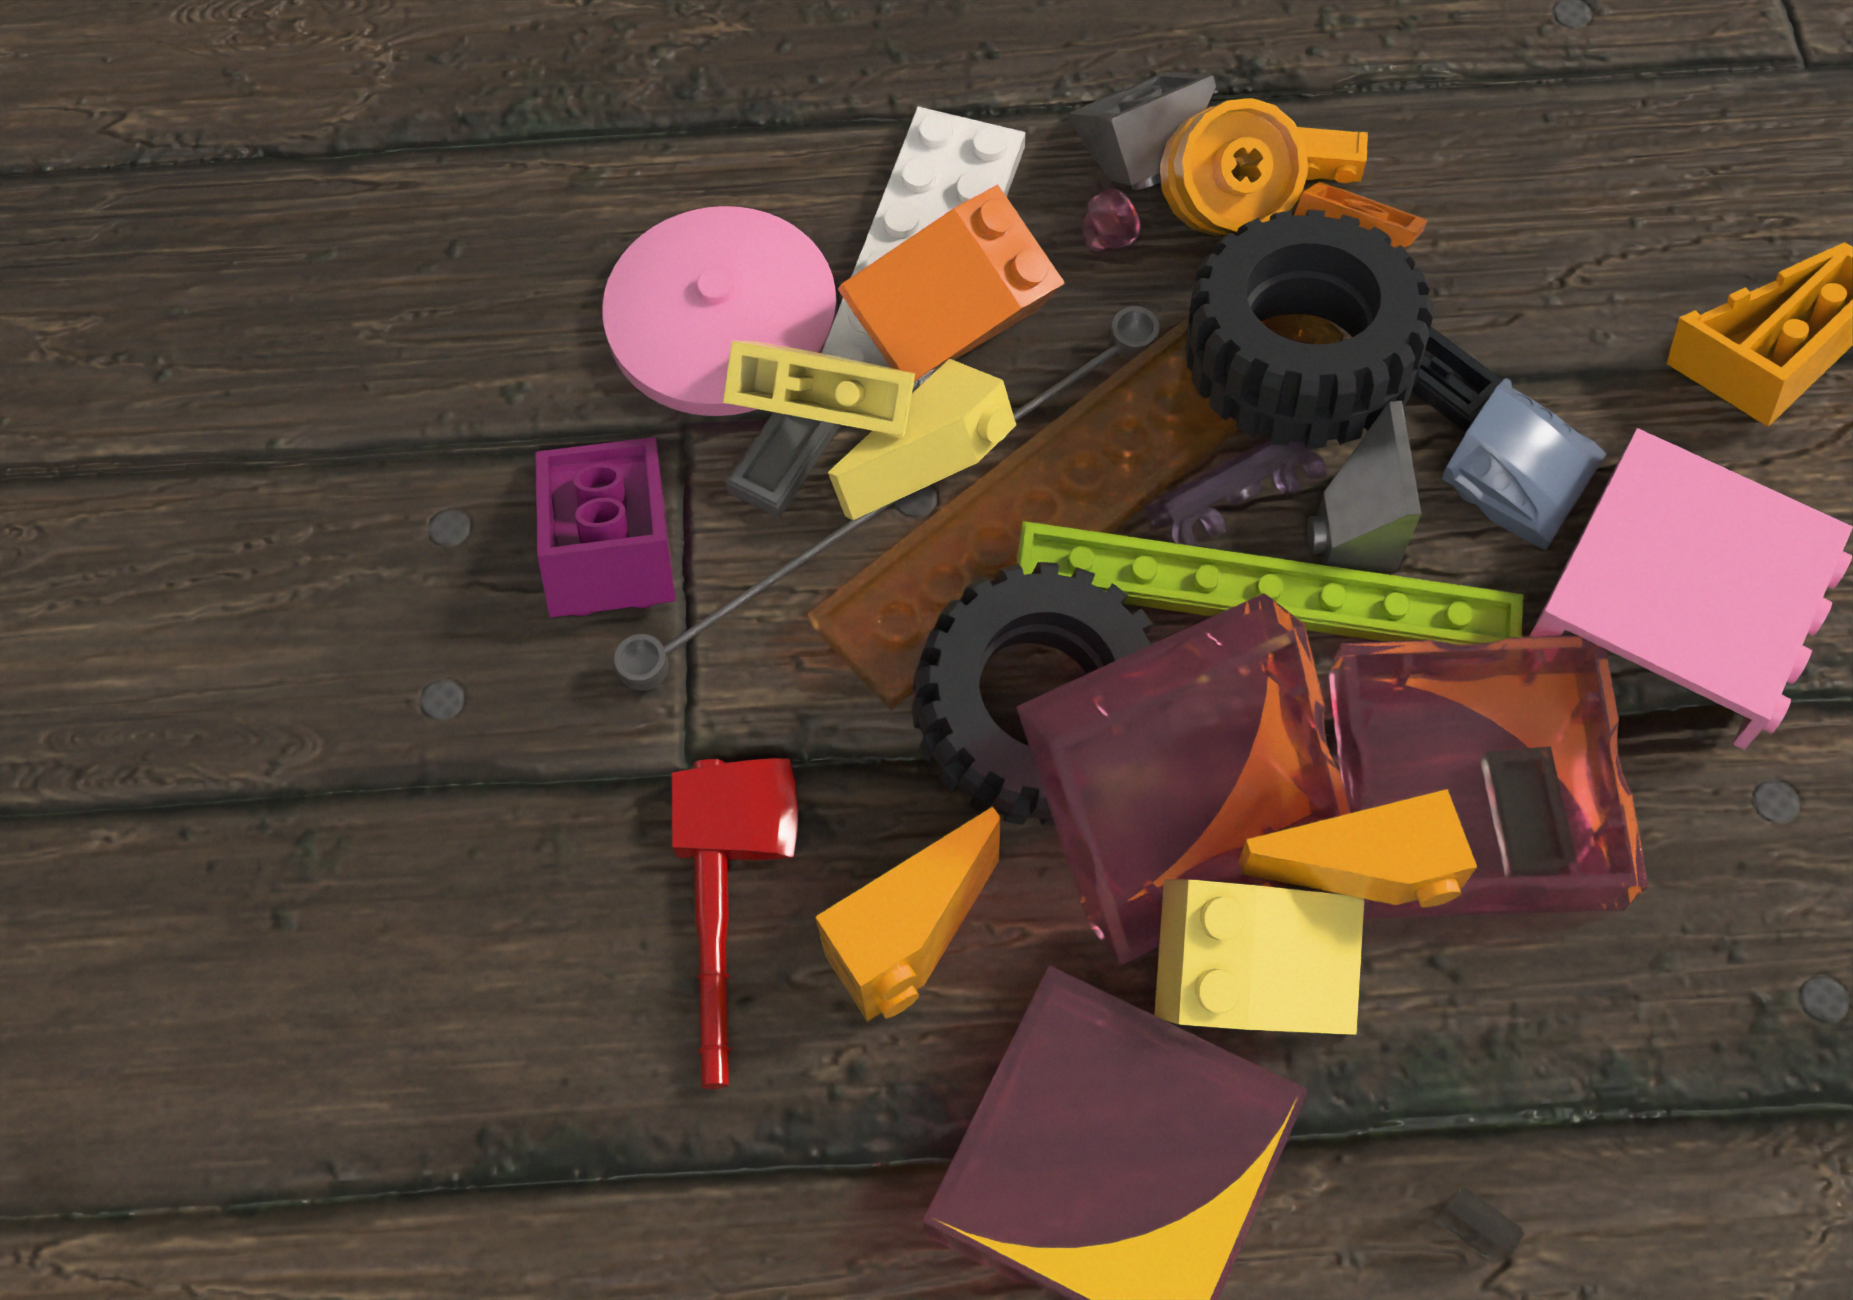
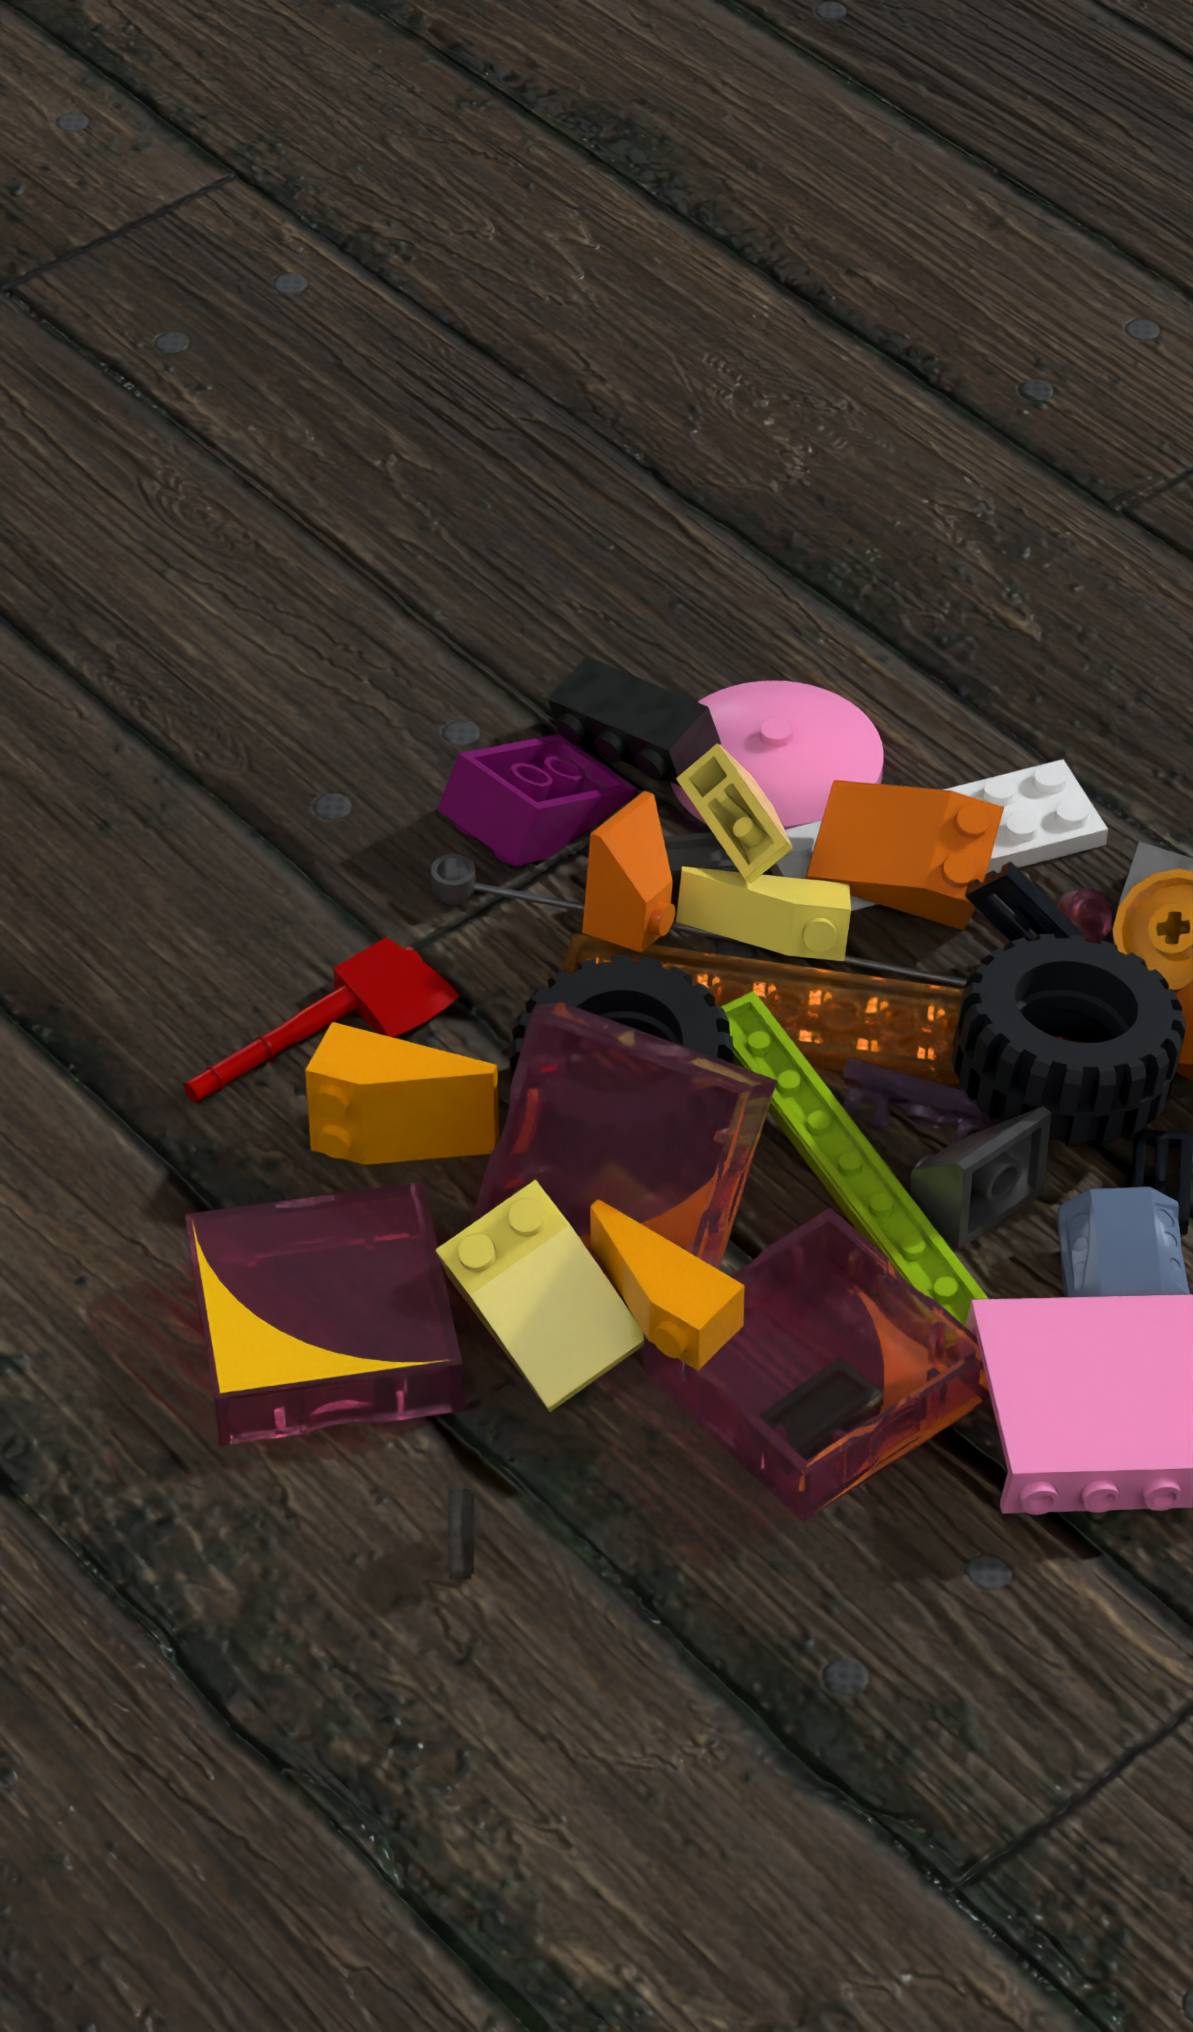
camera: 50 degrees right, 20 degrees down
(596, 385) = (632, 720): none -> pearl dark grey brick
(818, 524) = (629, 878): none -> orange slope
(1106, 247) = (1028, 903): none -> black tile

